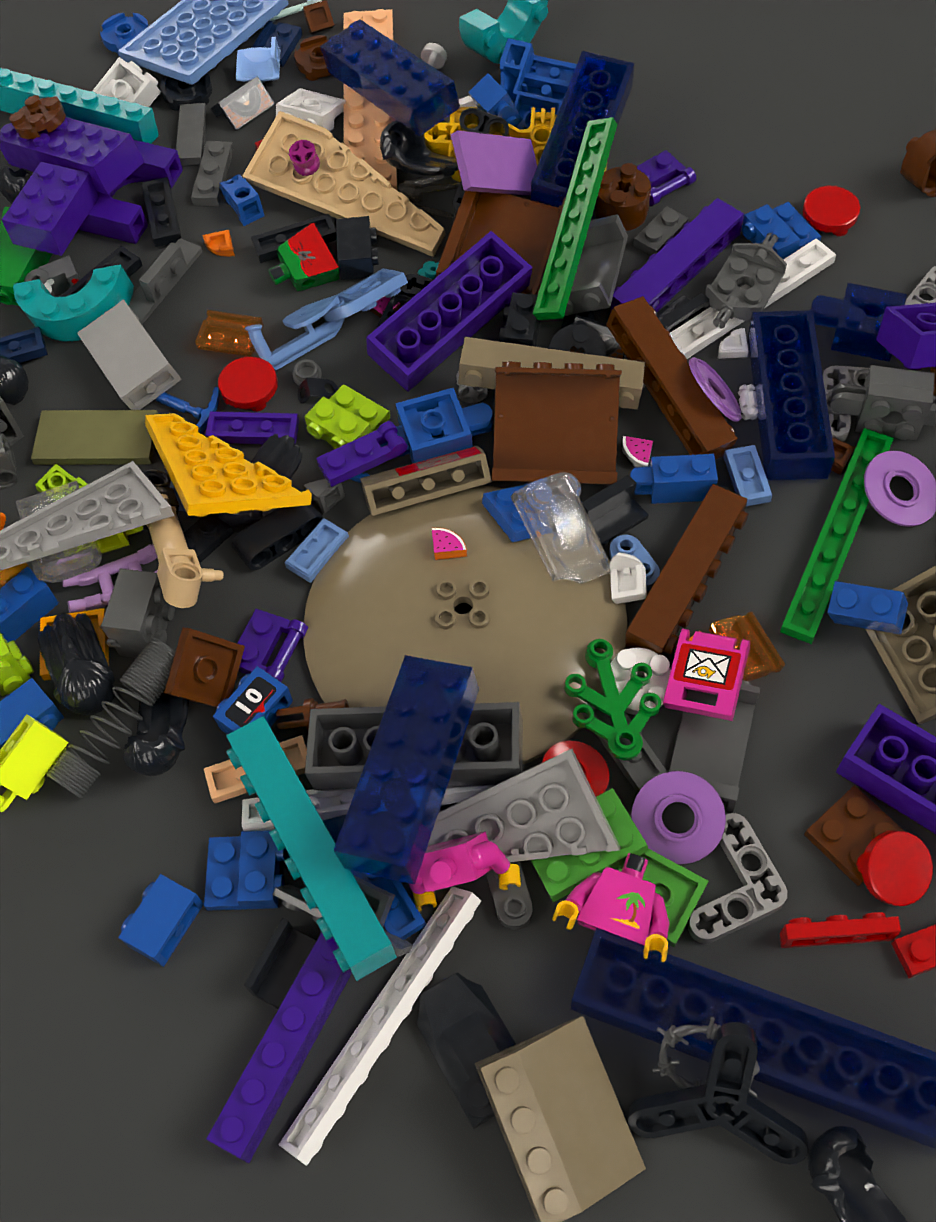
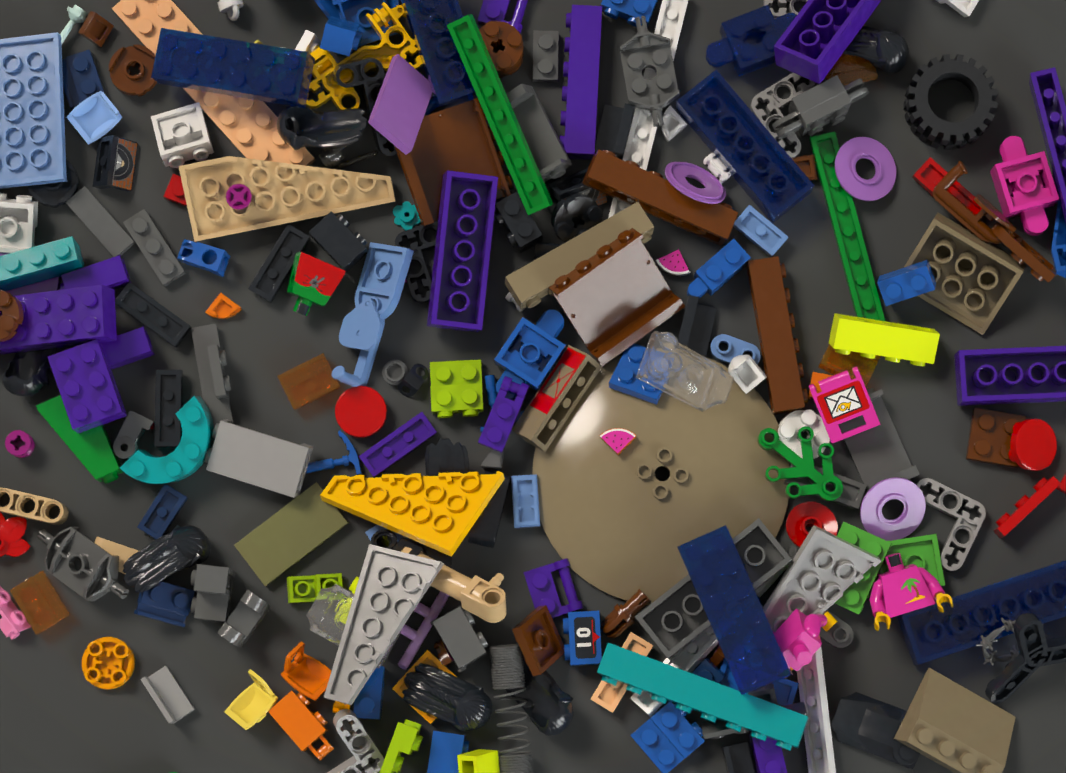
camera: 40 degrees left, 20 degrees up
(801, 643) = (883, 339): none -> neon yellow brick

